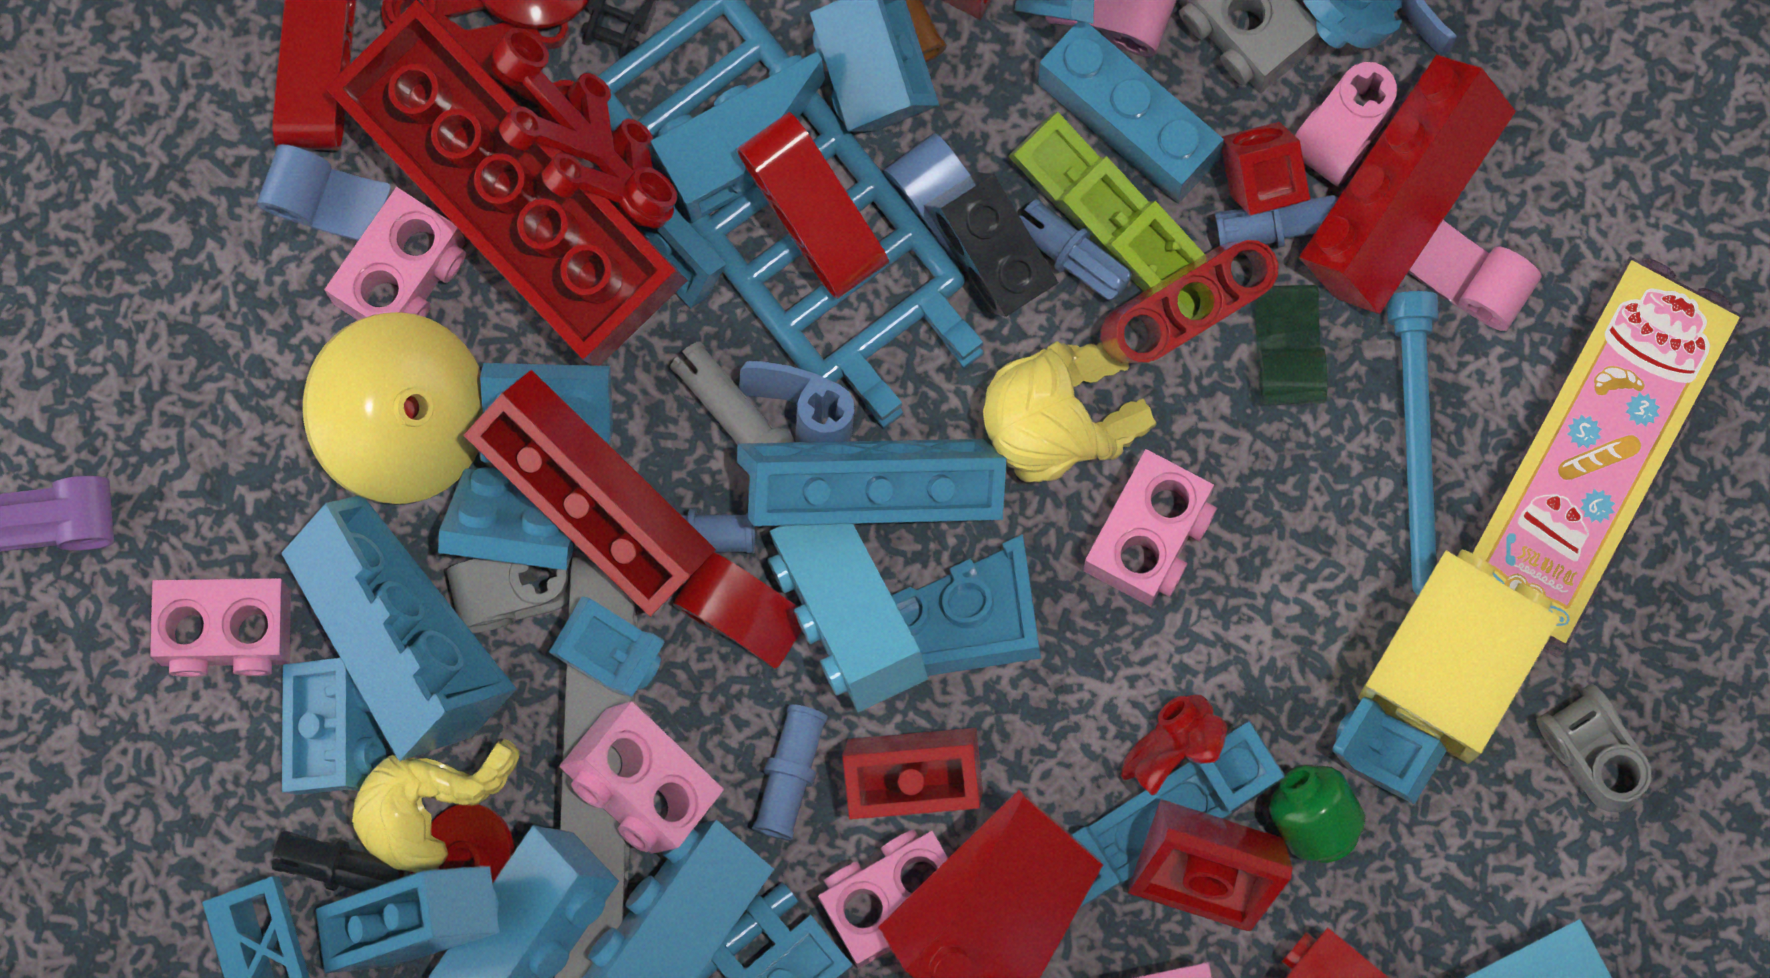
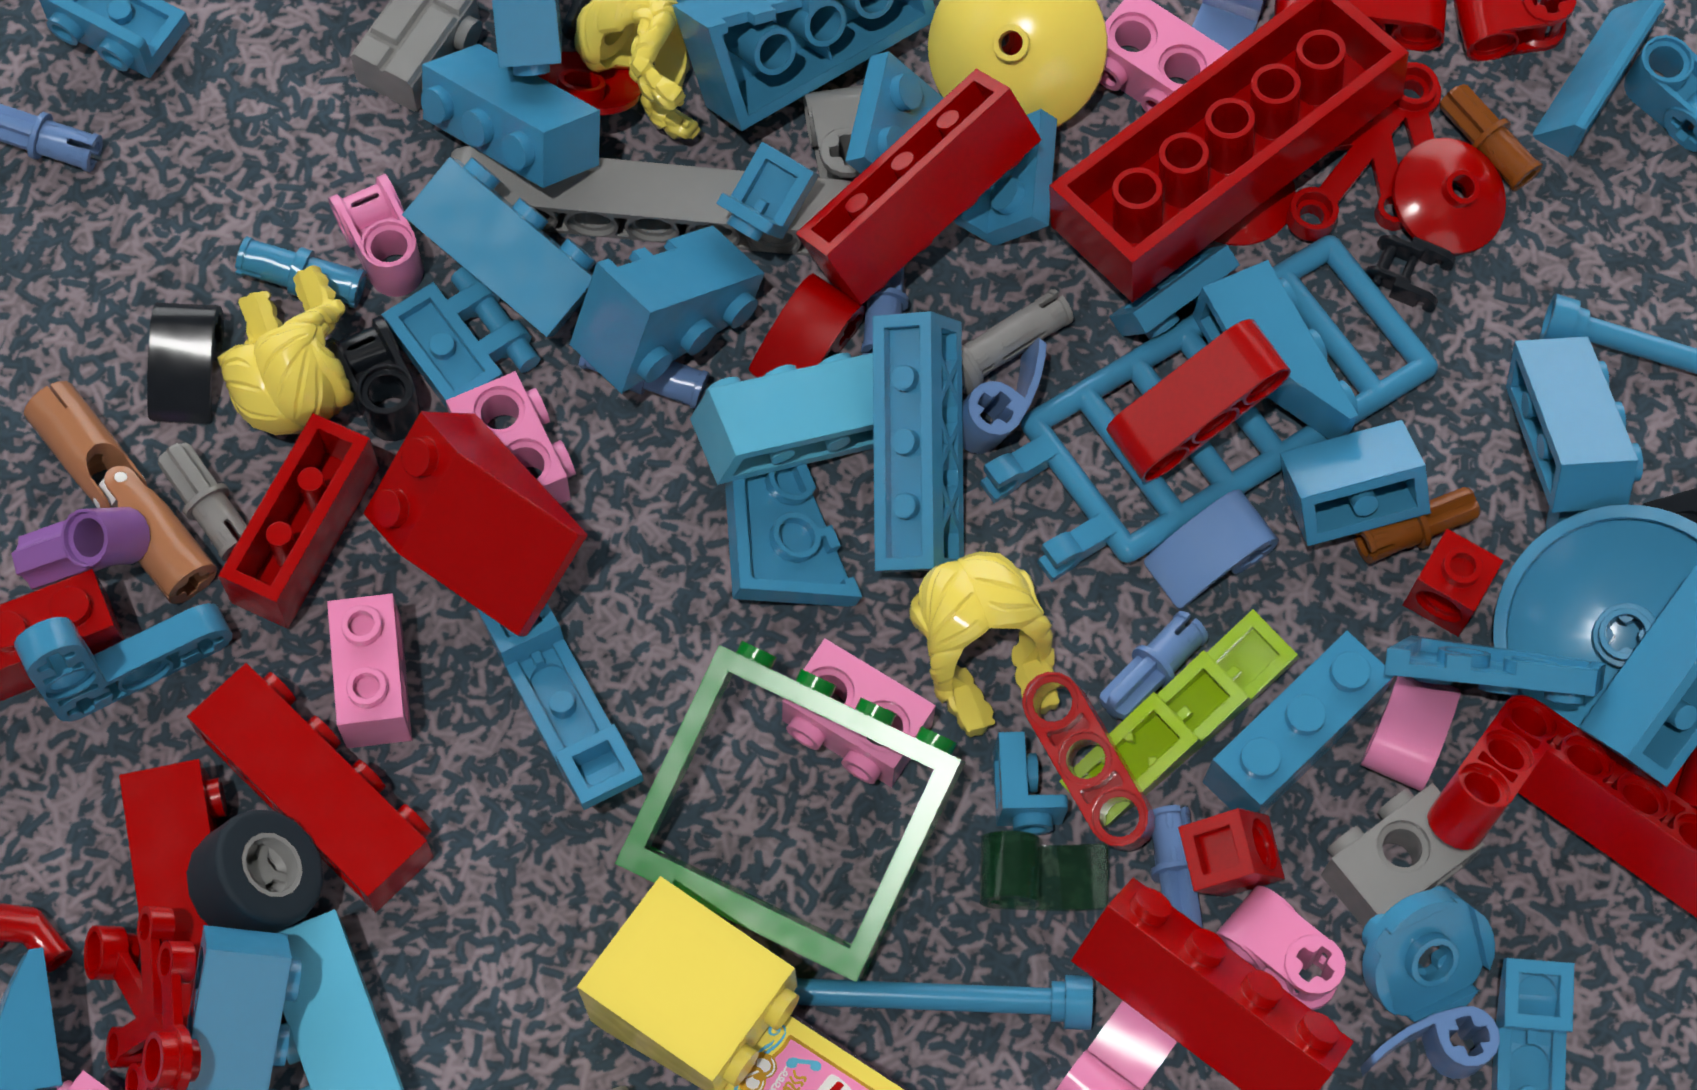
camera: 85 degrees right, 10 degrees down
(641, 191) = (1268, 195): red plant -> none
(648, 764) = (648, 225): bright pink brick -> none
(741, 743) = (663, 306): none -> dark azure wedge
(913, 773) = (626, 468): red brick -> none
(991, 243) = (1157, 575): black brick -> none
(1183, 730) = (633, 718): red plate -> none
(1200, 376) = (1014, 778): none -> dark azure bracket
(1210, 866) = (511, 738): red slope -> none
(1317, 813) = (547, 848): green head -> none
(1357, 614) = (743, 908): none -> window
(1387, 750) = (598, 920): dark azure bracket -> none

